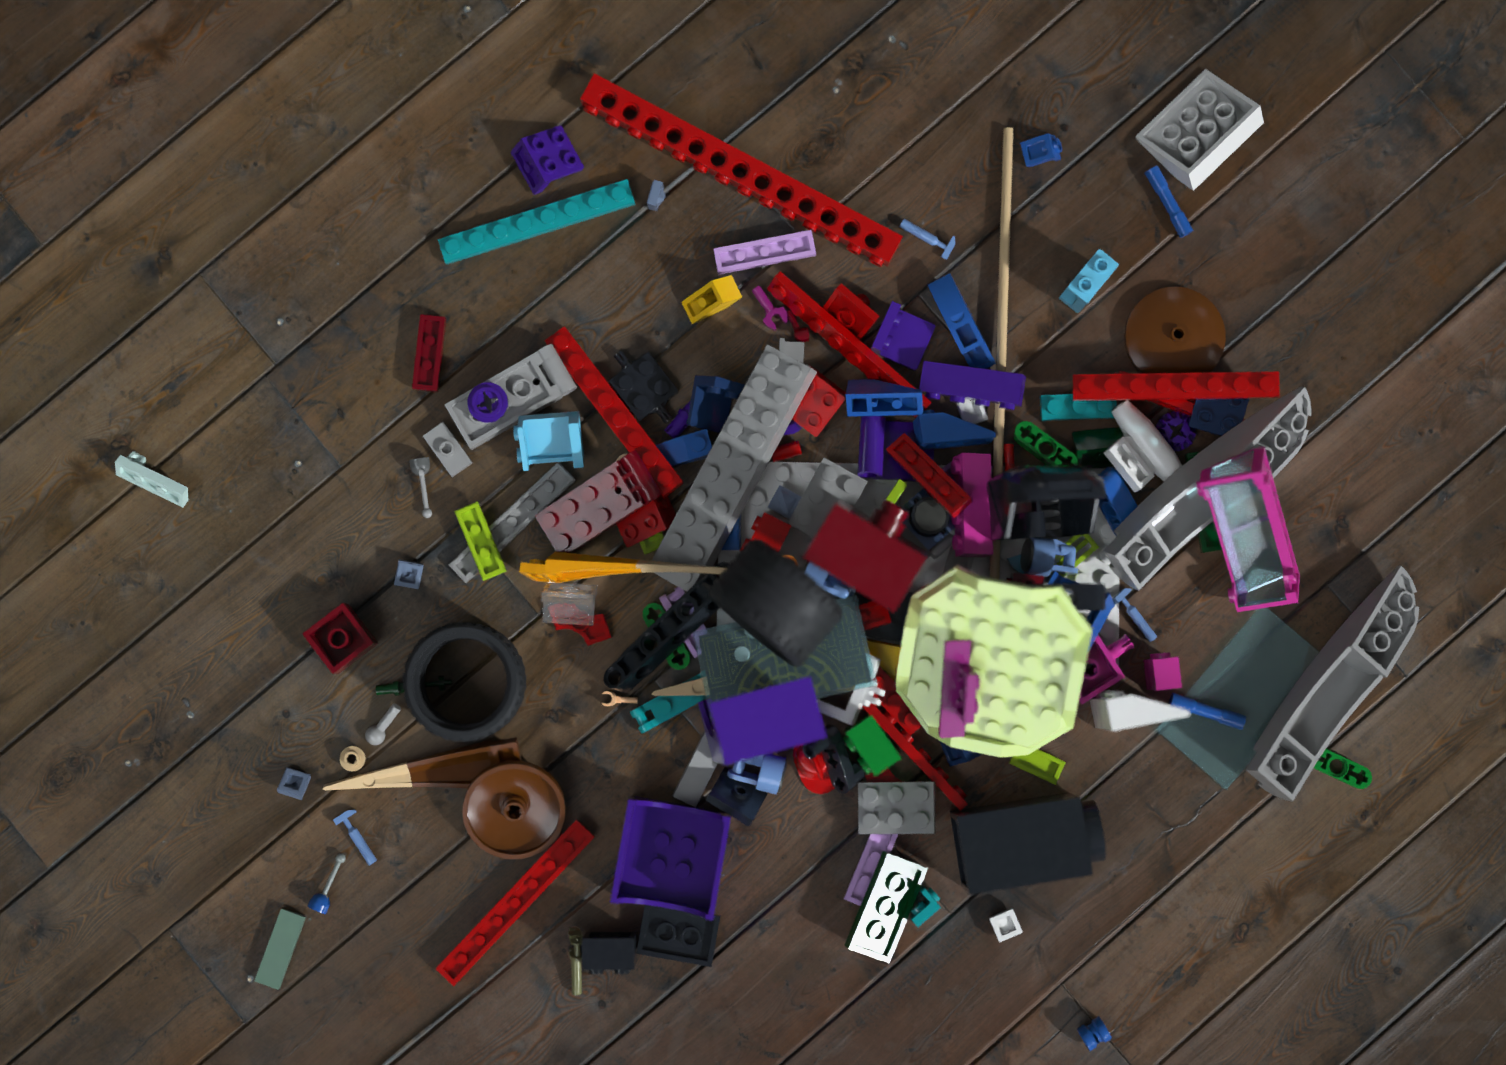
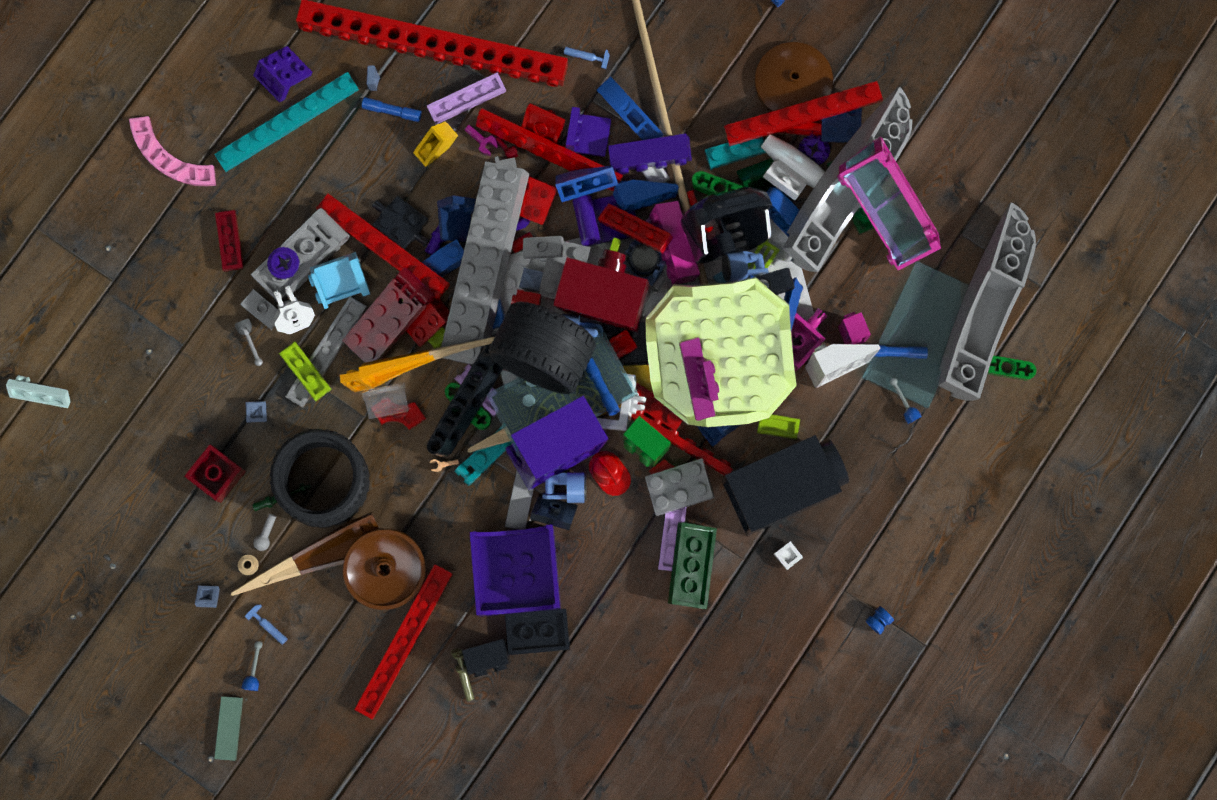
camera: 15 degrees left, 5 degrees down
(374, 232) = (166, 163): none -> bright pink tile
(482, 466) = (291, 311): none -> white hinge
(656, 234) = (403, 112): none -> blue piece
(809, 467) = (543, 247): none -> light grey plate
(838, 681) = (606, 397): none -> blue piece
(842, 772) = (615, 450): black beam -> none
(922, 911) = (721, 562): teal bracket -> none
(1088, 281) = (716, 53): medium azure panel -> none
(1135, 615) = (822, 295): medium blue piece -> none
(1203, 792) = (911, 413): none -> hinge

